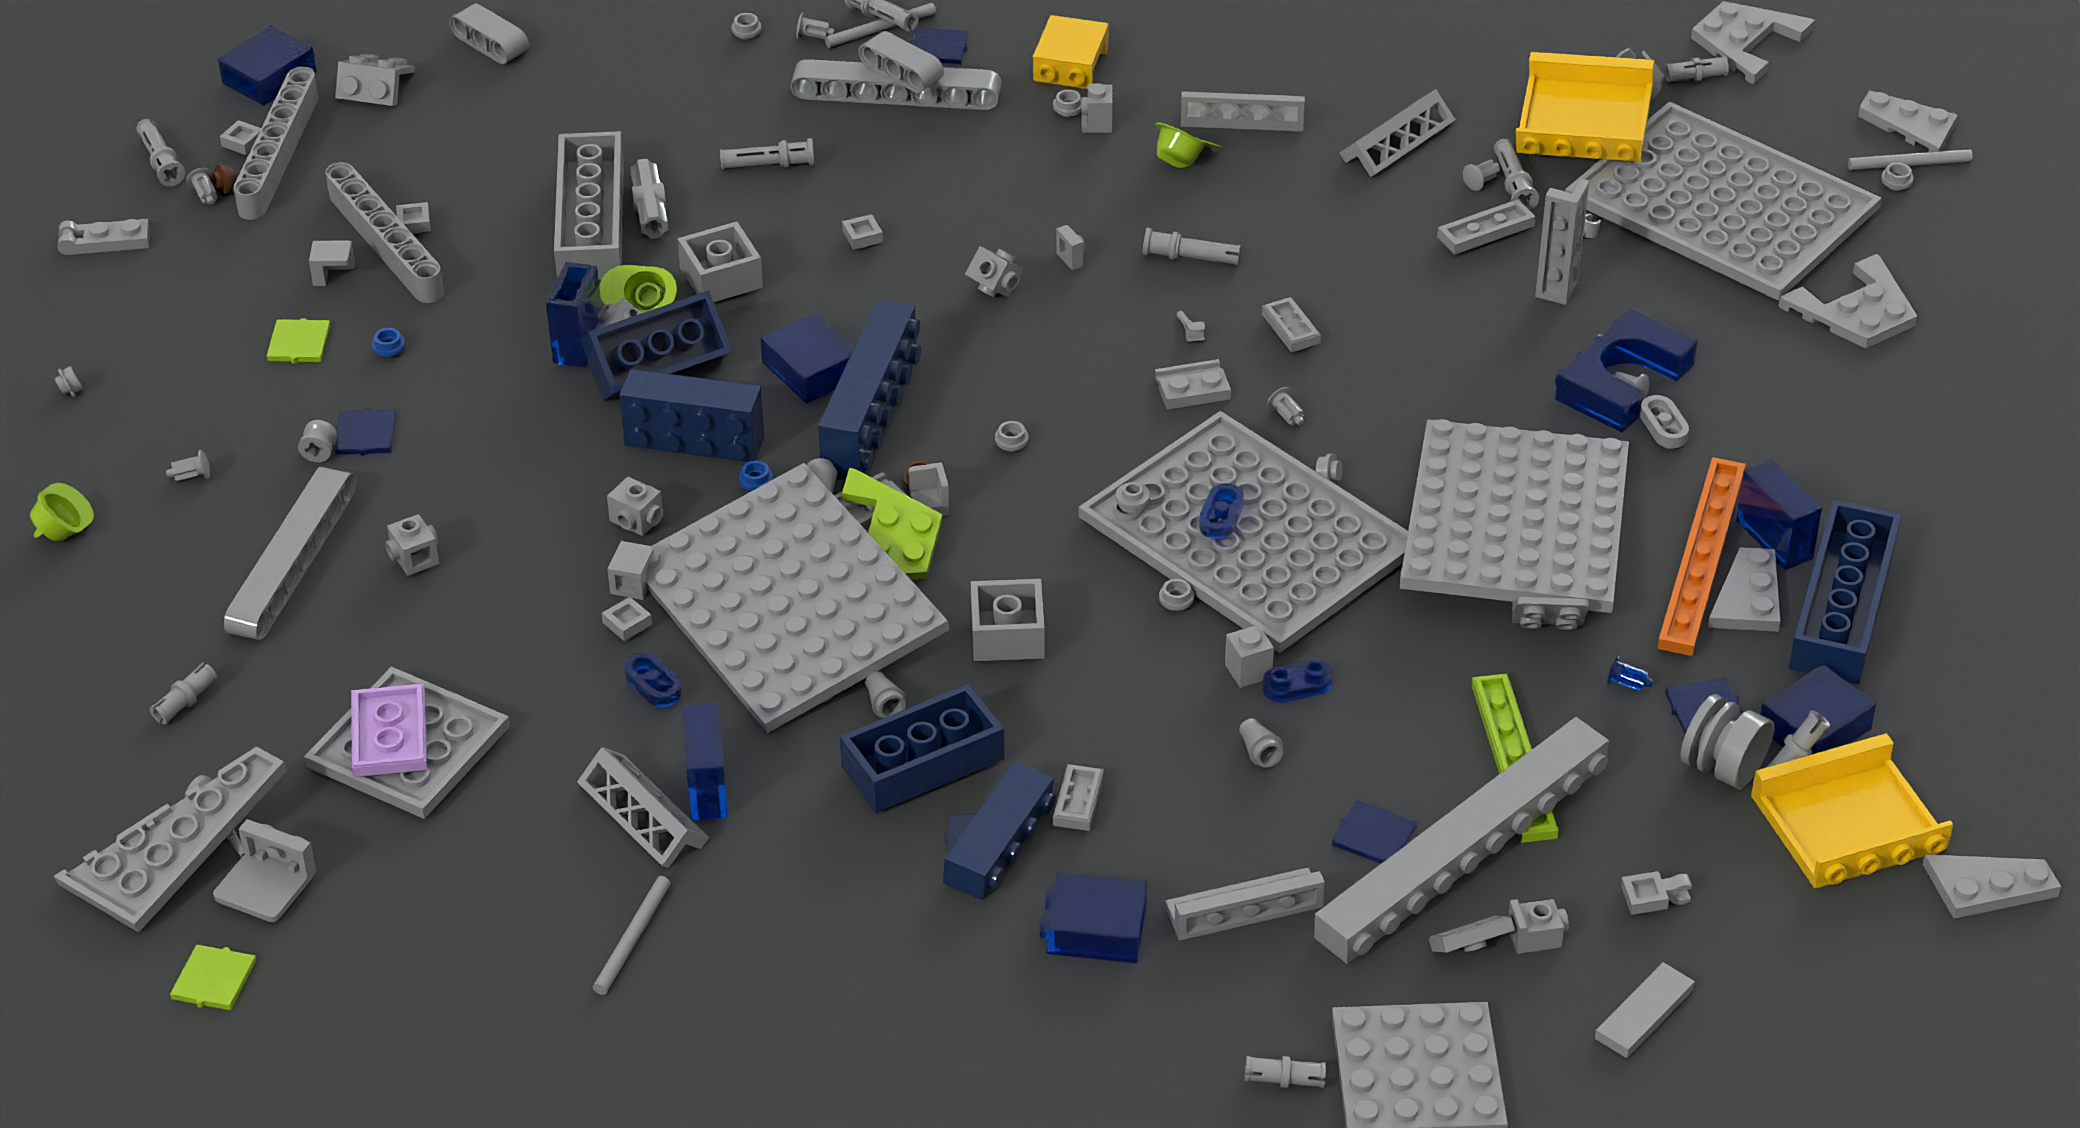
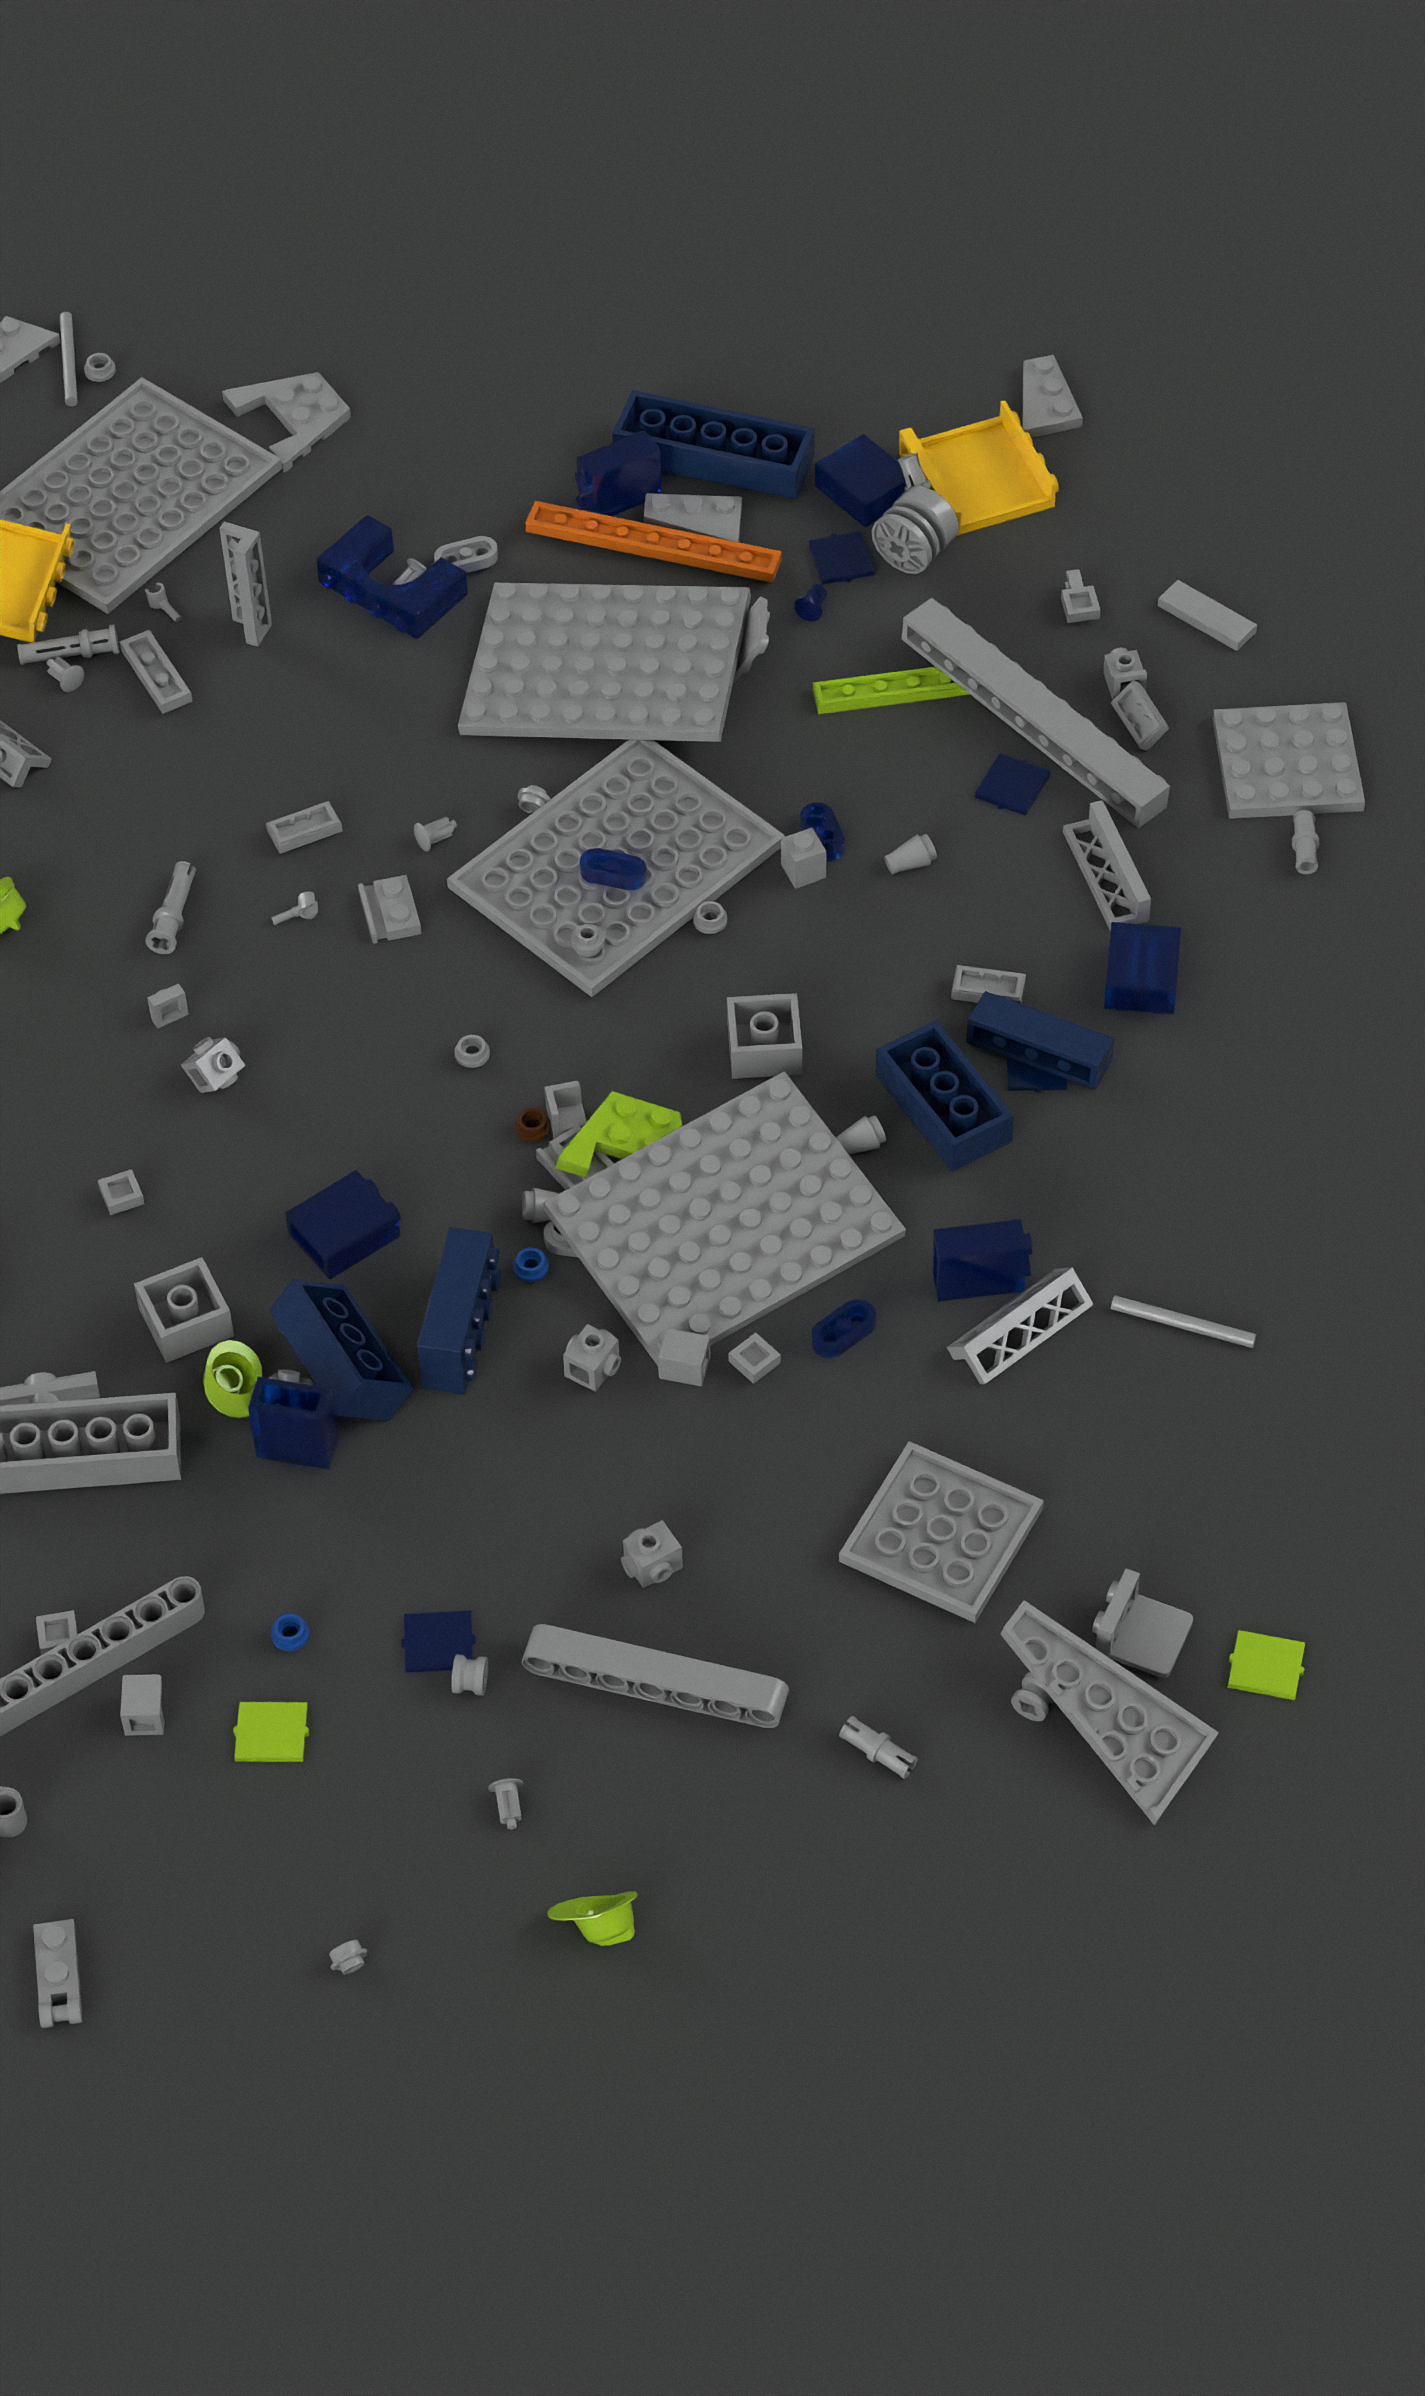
camera: 90 degrees left, 10 degrees up
(388, 730) = (940, 1538): lavender tile -> none
(870, 387) = (420, 1157): dark blue brick -> none

